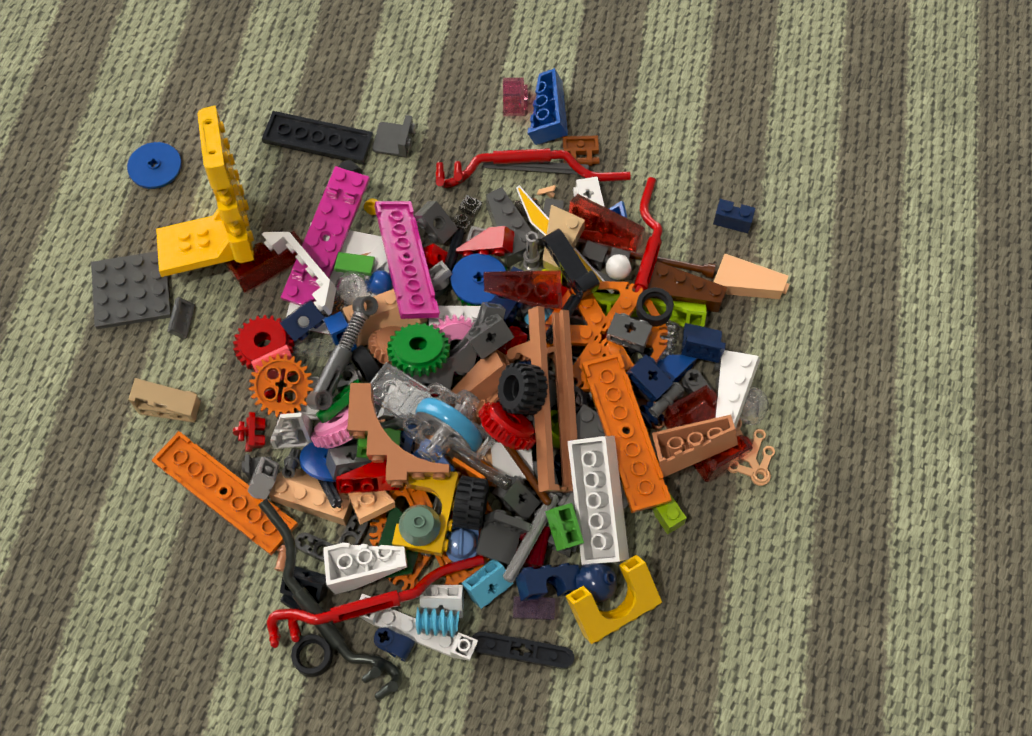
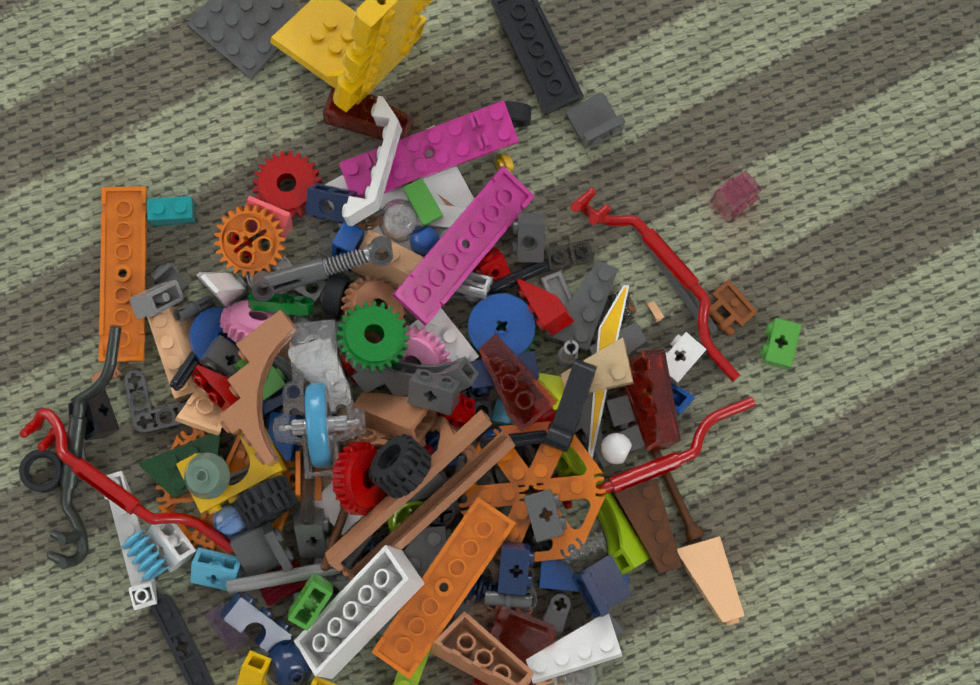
camera: 45 degrees right, 15 degrees up
(164, 401) = (163, 150): tan wedge -> none
(181, 318) = (253, 90): dark grey plate -> none
(211, 428) = (171, 211): none -> teal brick
(252, 423) = (189, 255): red hips -> none
(358, 565) = (142, 446): white wedge -> none
(396, 646) = (104, 533): dark blue piece -> none
(549, 111) = (748, 242): blue wedge -> none
(629, 137) = (789, 335): none -> bright green brick
(659, 294) = (609, 515): black tyre -> none
(734, 217) = (771, 515): dark blue brick -> none

